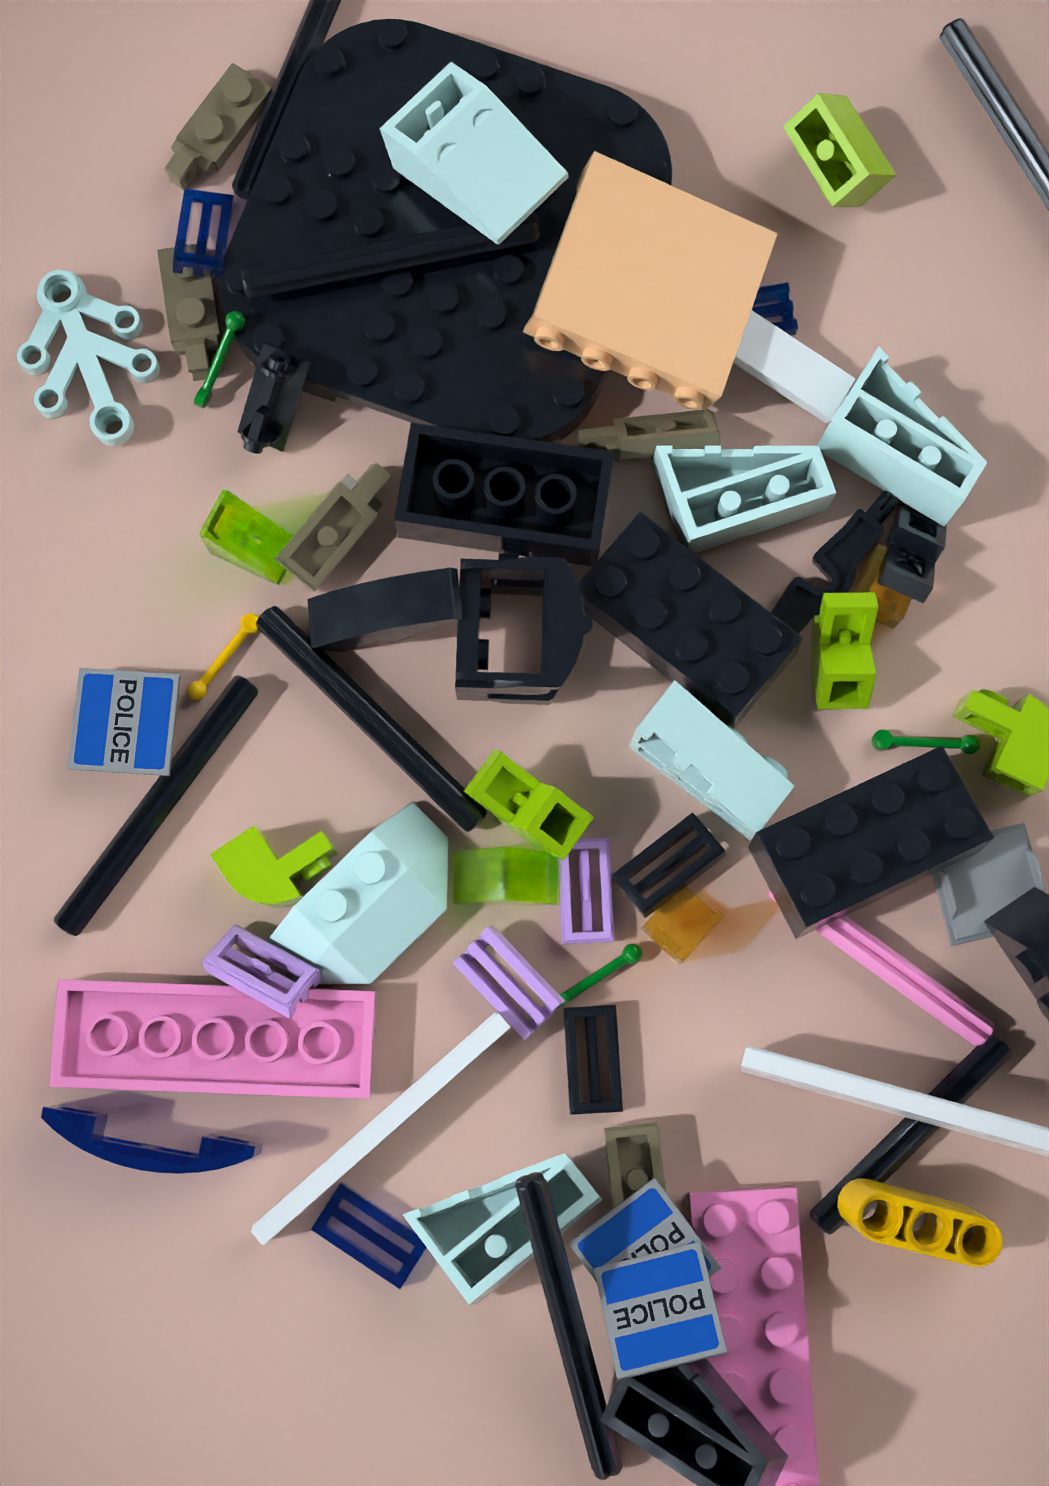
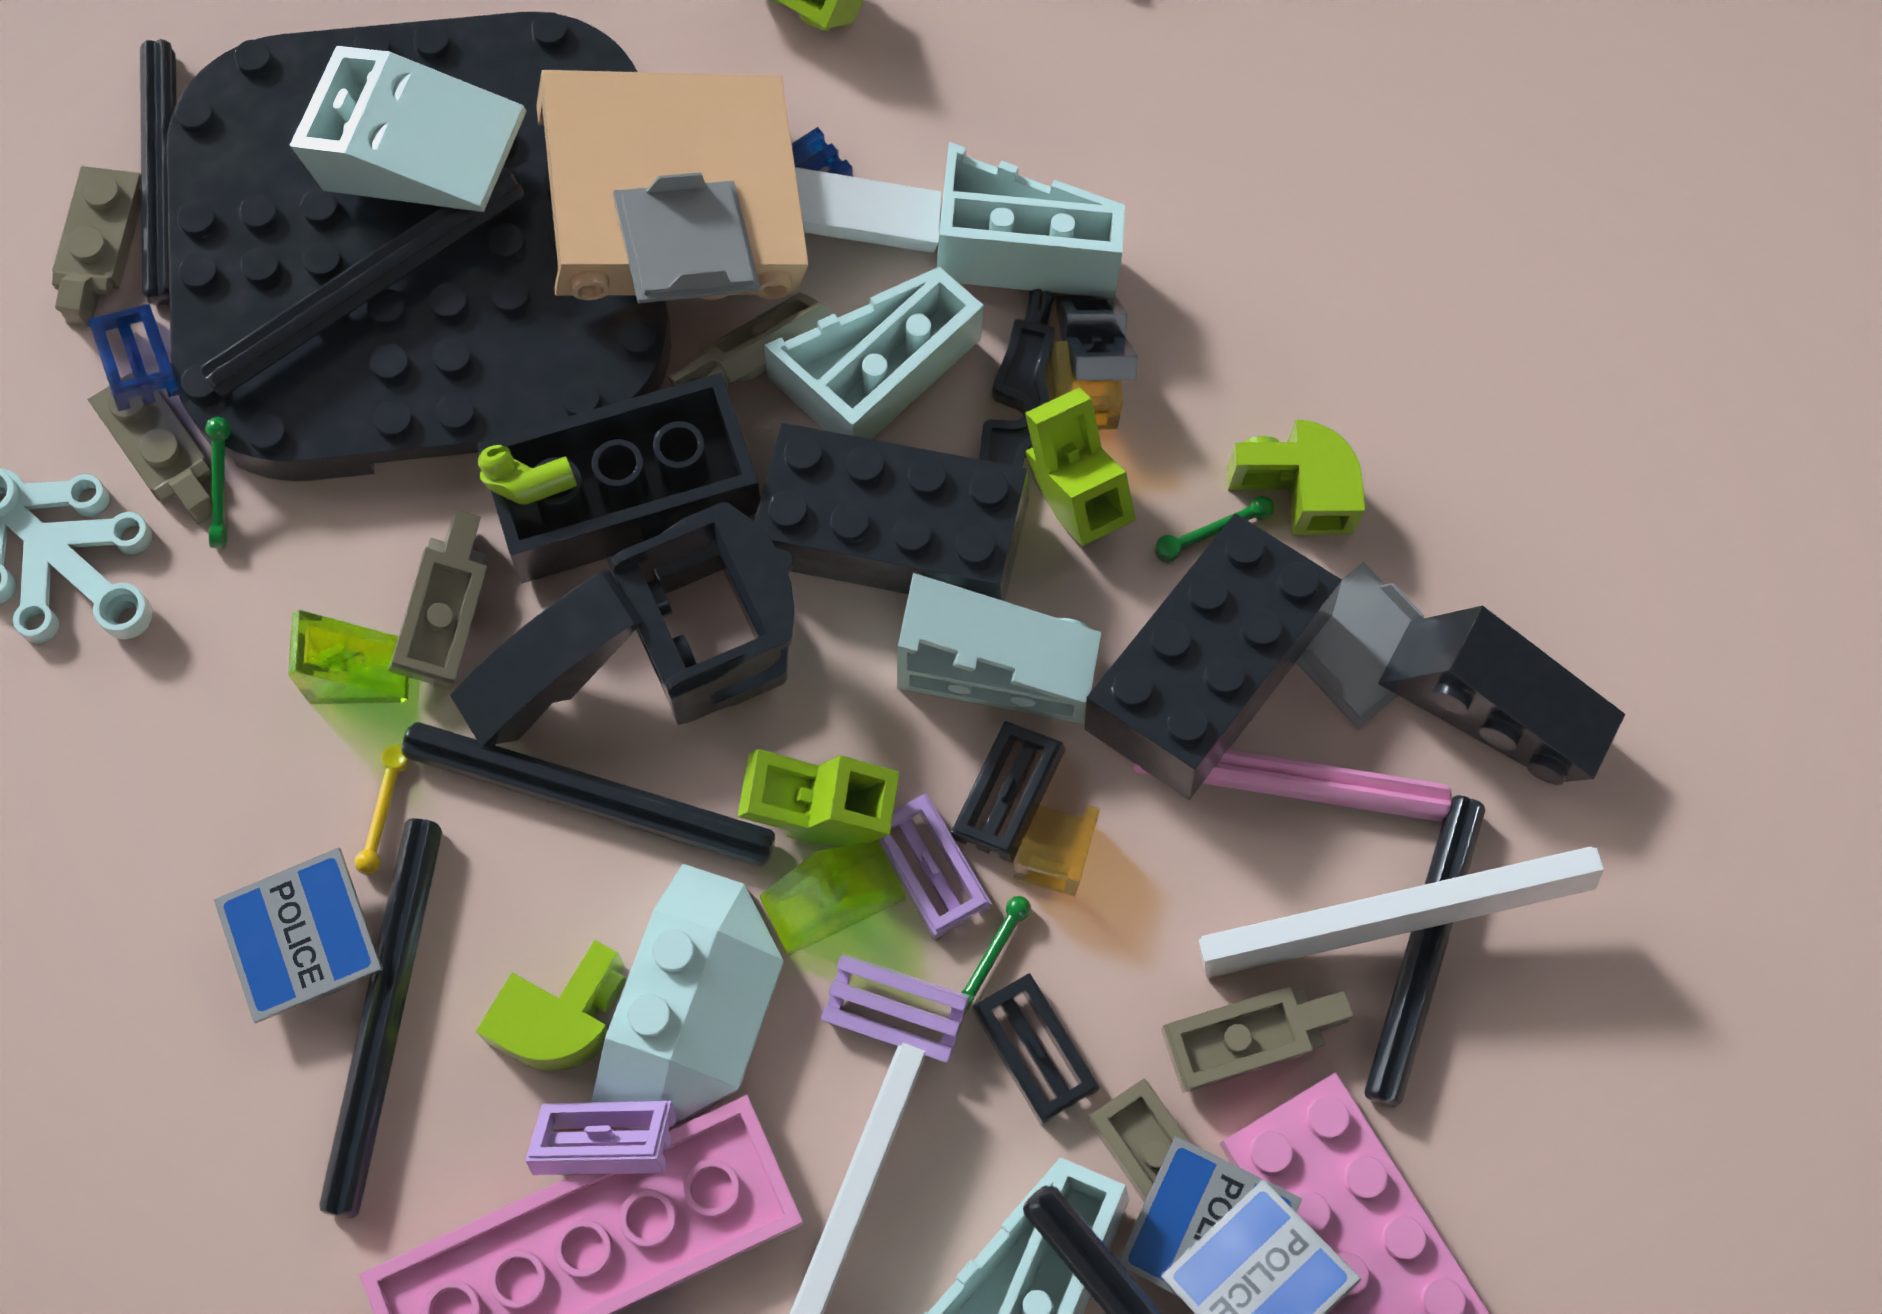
camera: 30 degrees left, 10 degrees down
(272, 399) = (302, 495): black hinge -> none
(426, 469) = (518, 481): none -> lime arm
(637, 337) = (685, 239): none -> light grey piece
(750, 1131) = (1251, 1035): none -> dark tan hinge
(941, 1232) = (1515, 1029): yellow beam -> none

